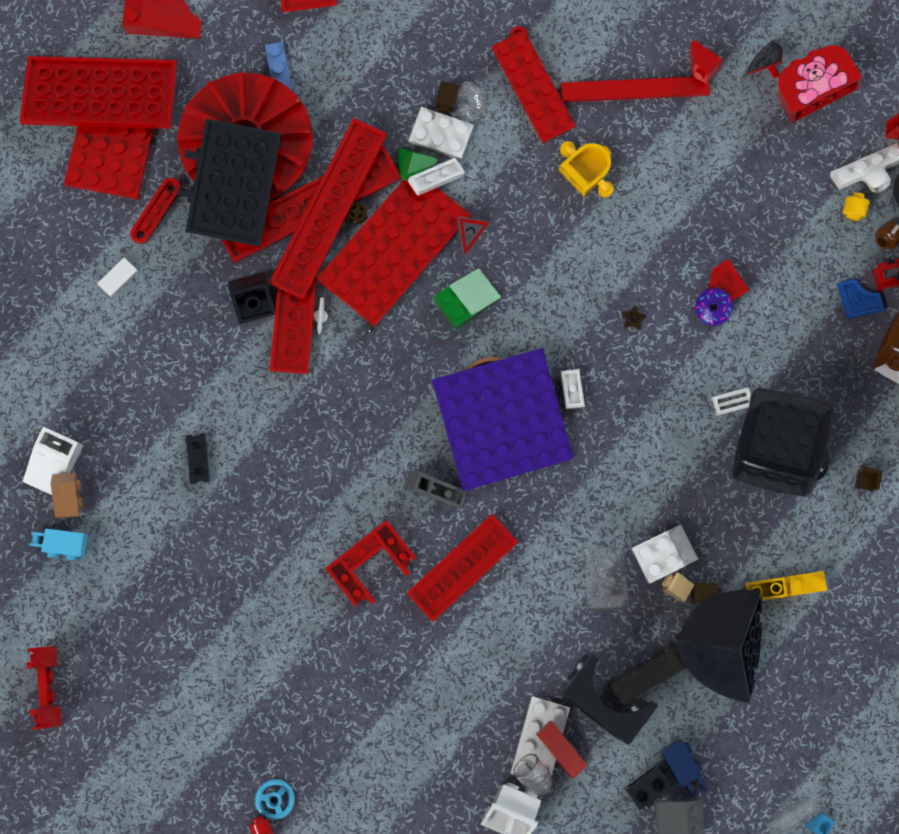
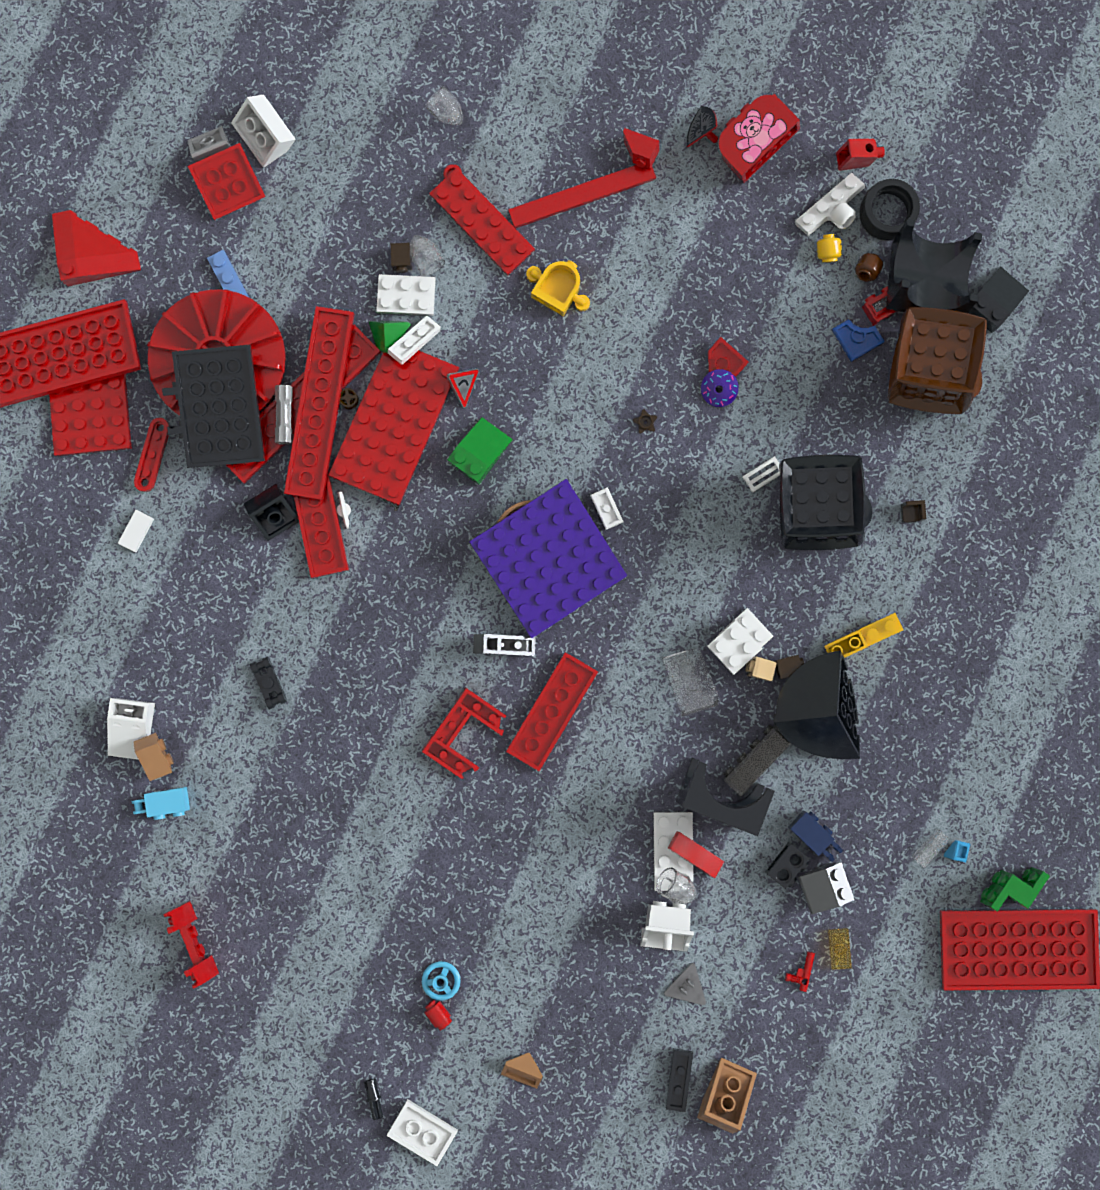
camera: 10 degrees left, 5 degrees up
(288, 220) = (283, 427): none -> light grey axle

